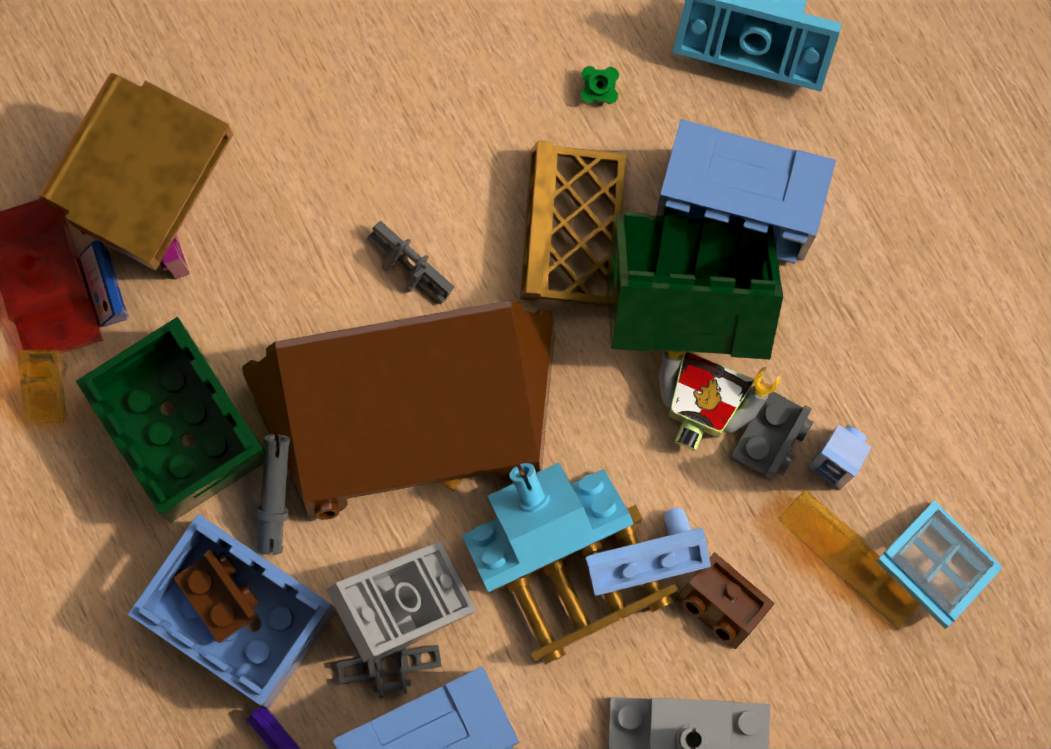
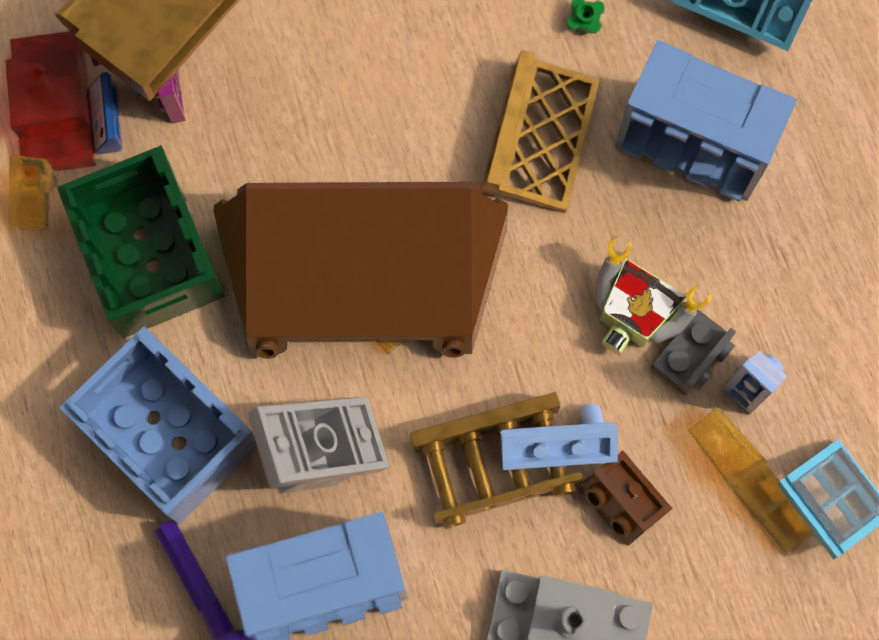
camera: 10 degrees right, 5 degrees down
(217, 596) = (149, 409): reddish brown bracket -> none
(272, 510) = (220, 324): dark grey pin -> none
(400, 684) = (310, 508): dark grey piece -> none
(421, 274) = (392, 149): dark grey piece -> none
(543, 521) = (466, 392): medium azure brick -> none
(692, 286) = (644, 197): dark green container -> none

